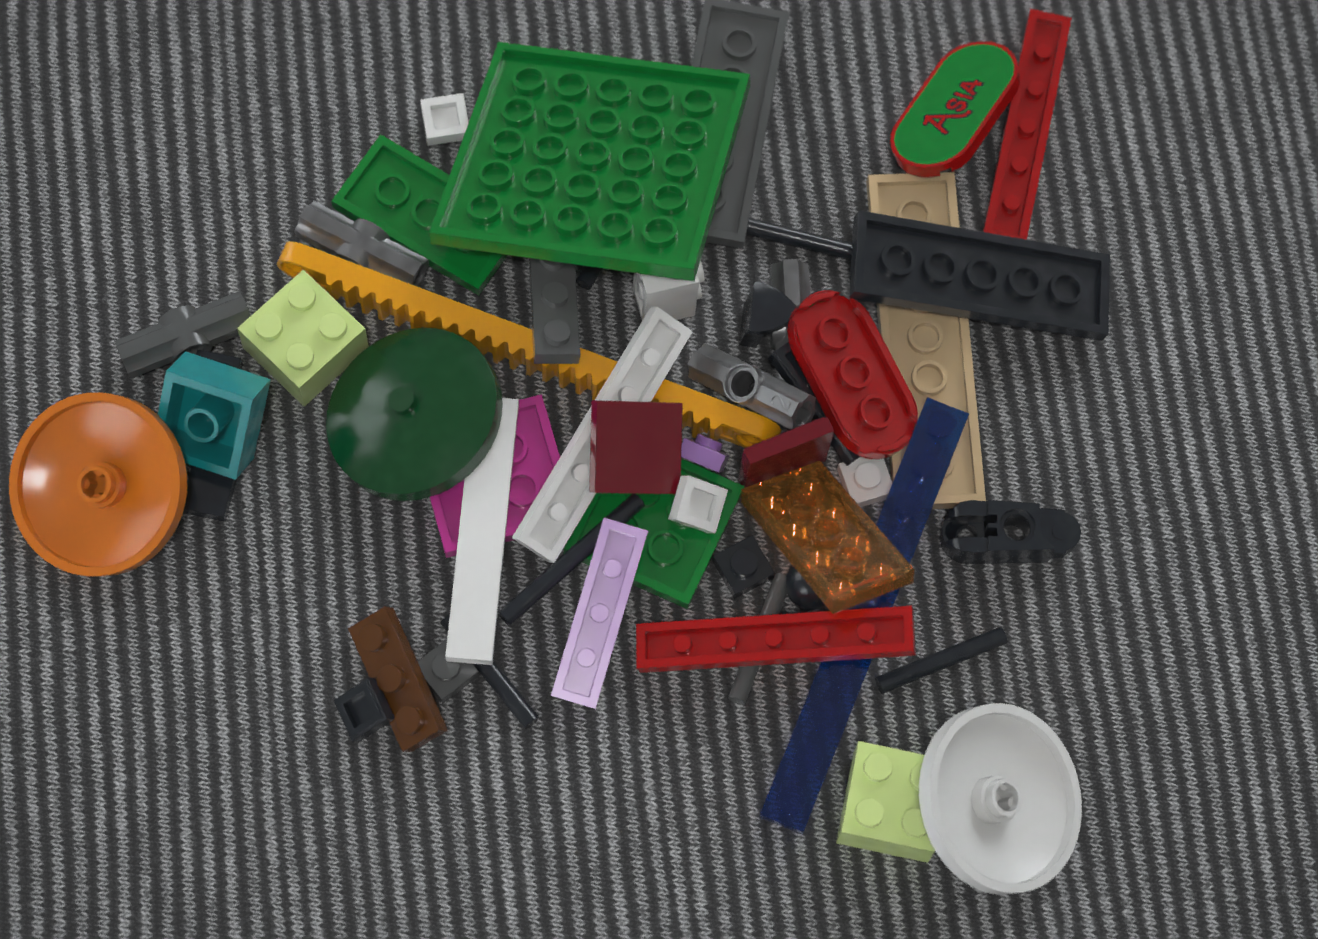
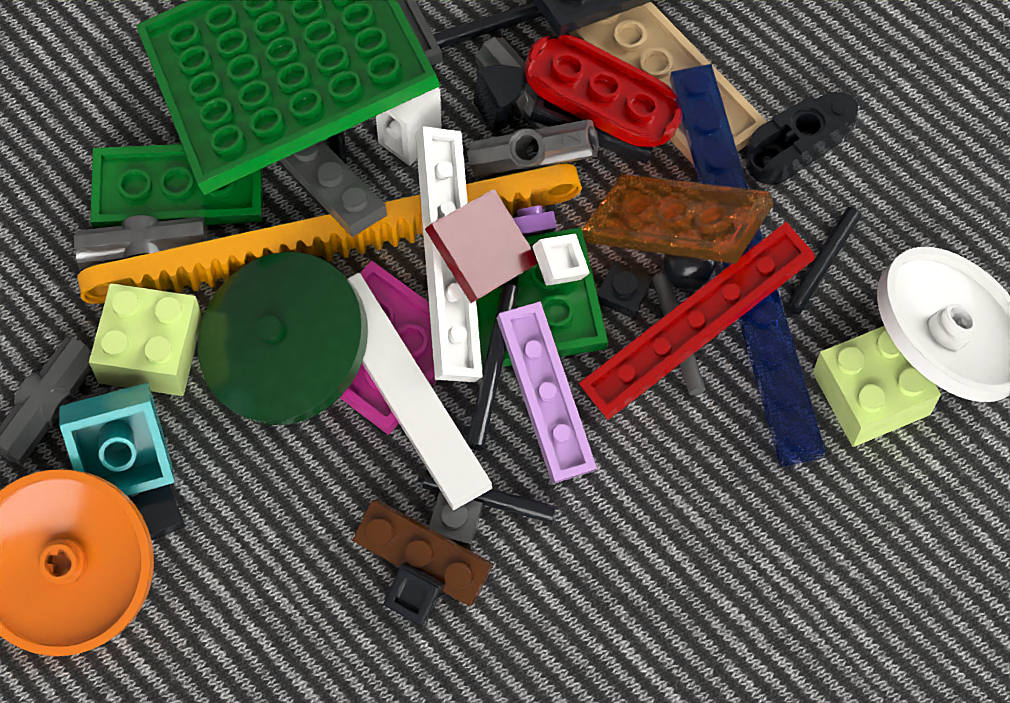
camera: 30 degrees left, 5 degrees down
(444, 118) = (136, 107): white plate -> none
(786, 452) = (597, 178): dark red tile -> none
(866, 480) = (667, 163): white plate -> none

